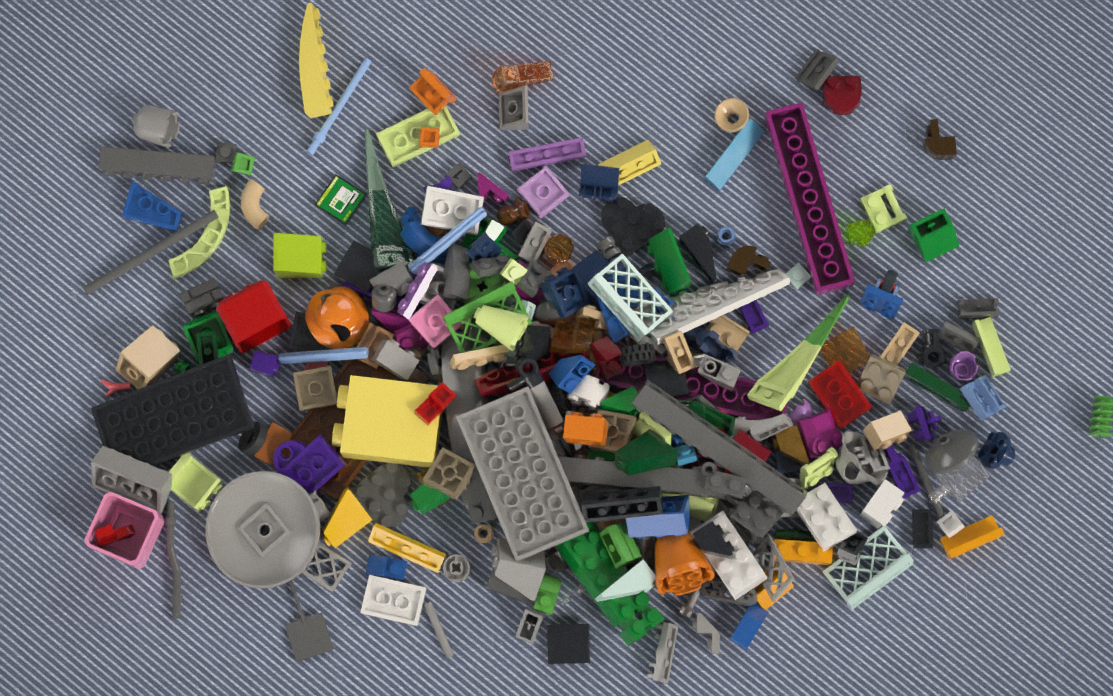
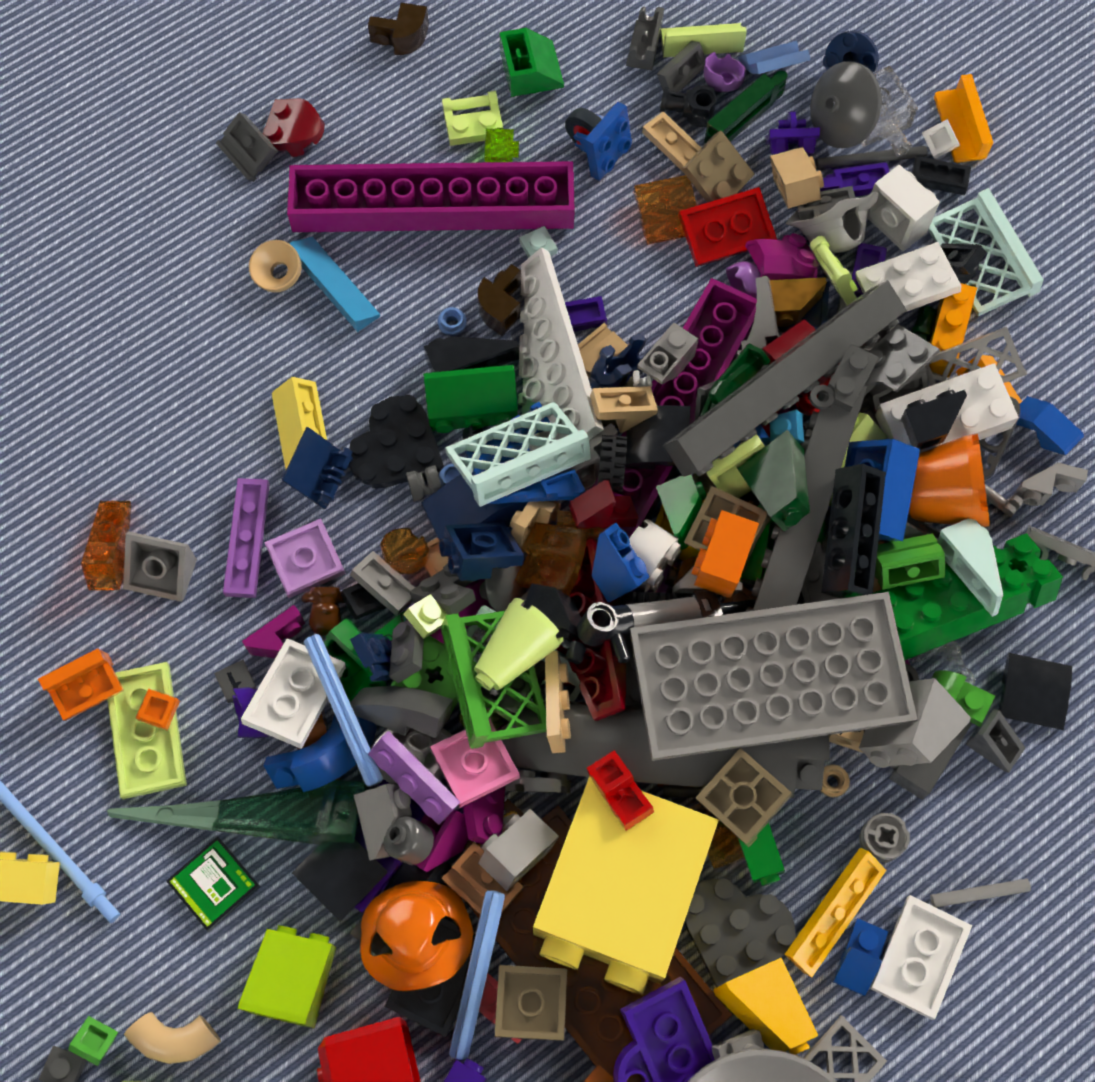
camera: 80 degrees left, 10 degrees down
(784, 379) = (698, 278): yellowish green plate -> none

